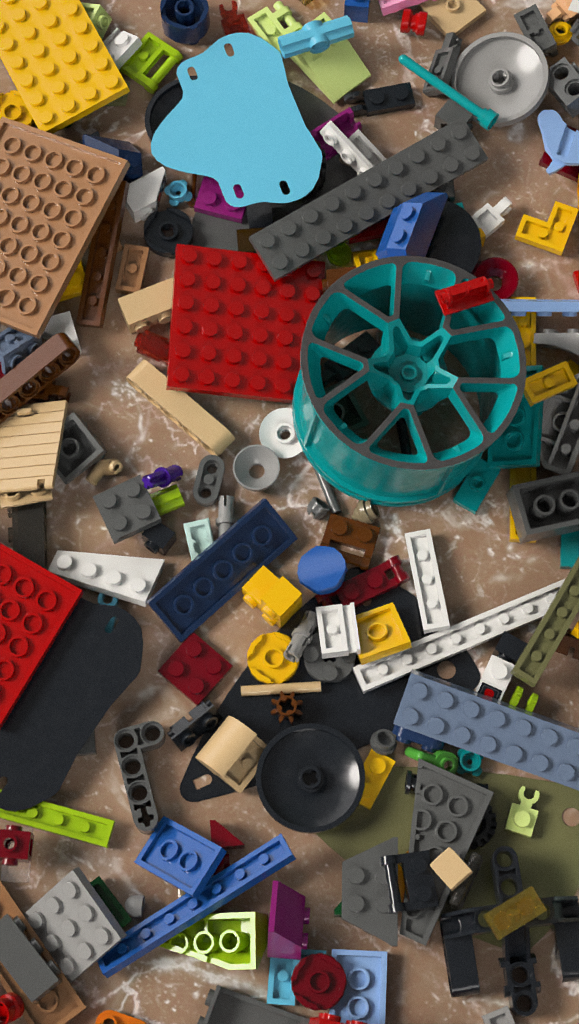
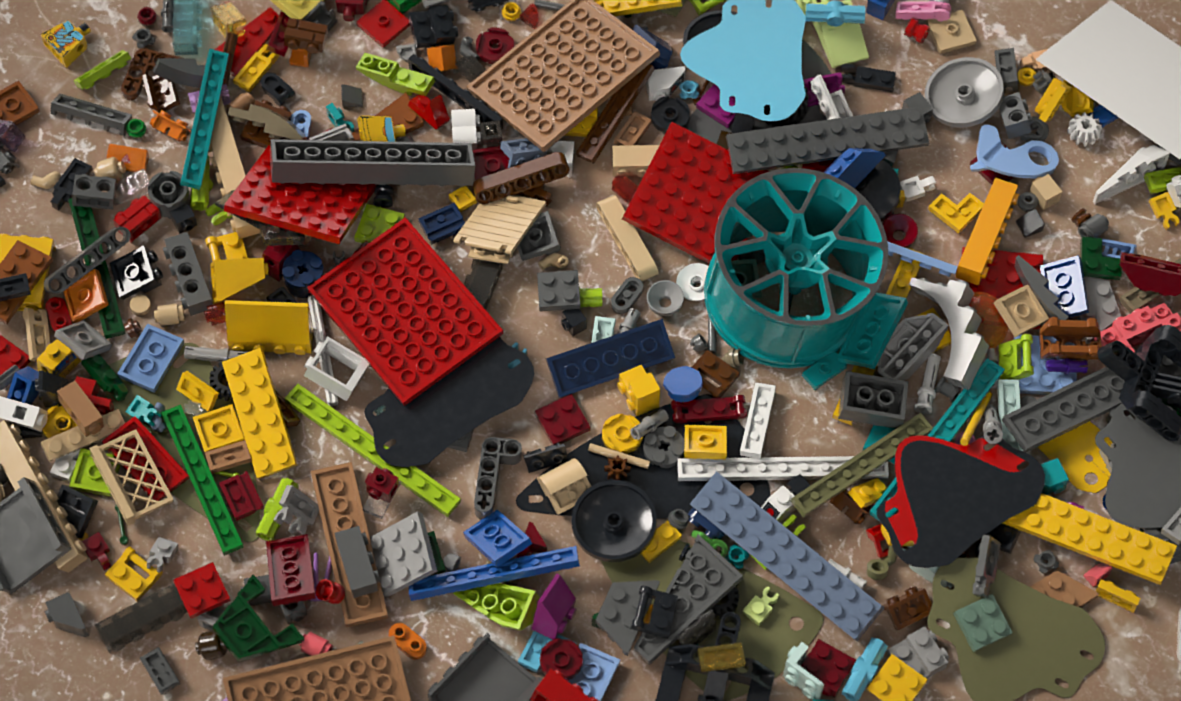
camera: 20 degrees right, 10 degrees down
(112, 575) = (529, 334): white wing -> none
(163, 477) = (594, 279): dark purple axle -> none
(338, 630) = (676, 427): white plate -> none
(444, 62) = (925, 69): dark grey hinge -> none
(451, 868) = (688, 612): tan slope -> none
(465, 295) = (857, 214): red hinge -> none
(486, 117) = (940, 114): teal piece -> none
(549, 383) = (903, 311): yellow plate -> none

